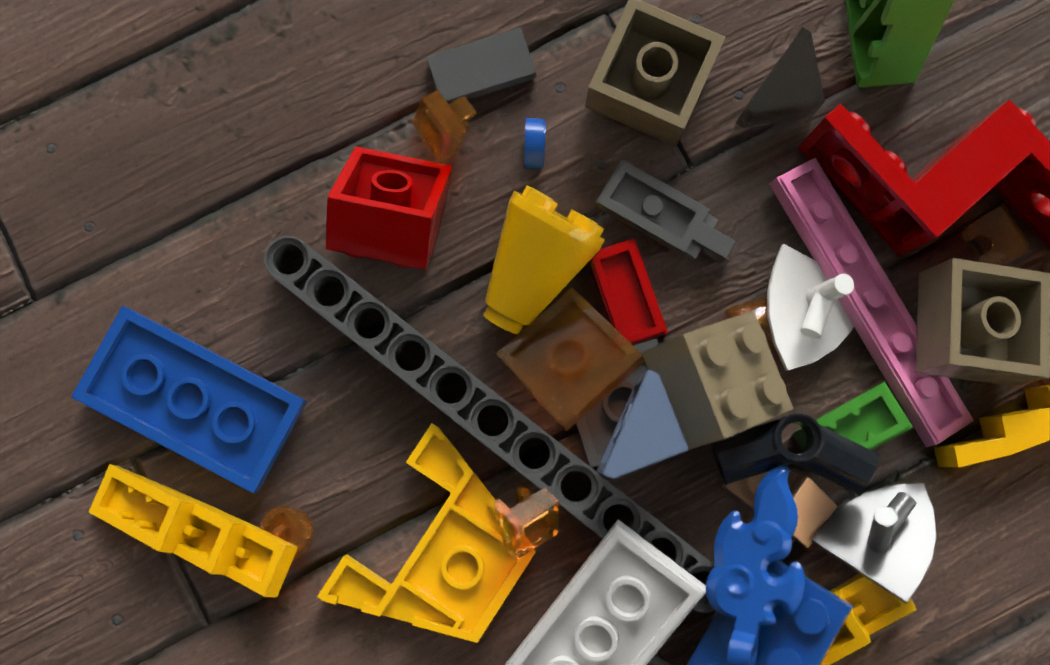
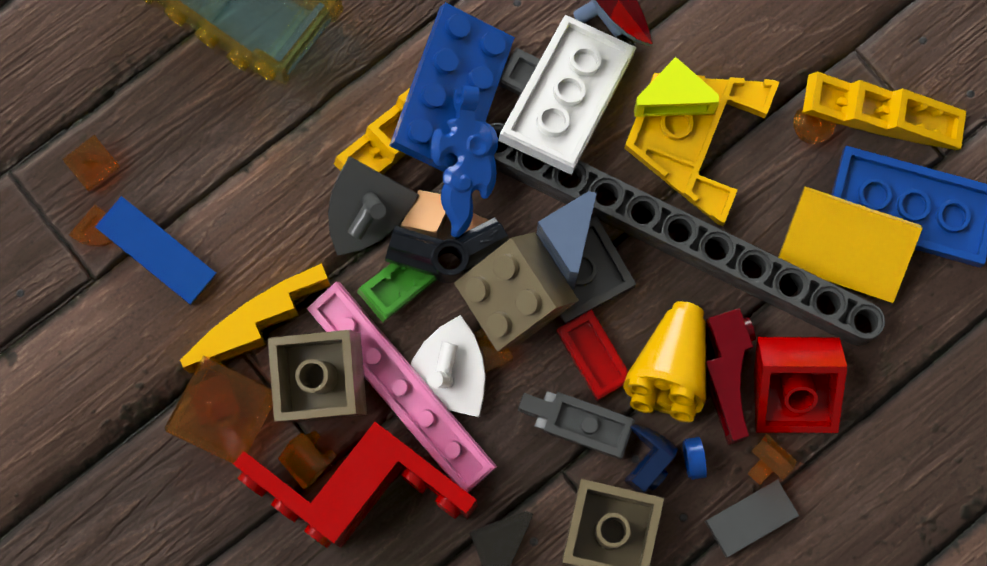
camera: 170 degrees right, 5 degrees down
(282, 364) = (850, 244): none -> yellow tile
(457, 605) = (676, 93): none -> neon yellow slope
(458, 270) = (730, 340): none -> dark red slope
(528, 522) = (636, 161): clear orange tile -> none
(570, 358) = (630, 292): clear orange tile -> none
(586, 144) = (651, 469): none -> dark blue plate

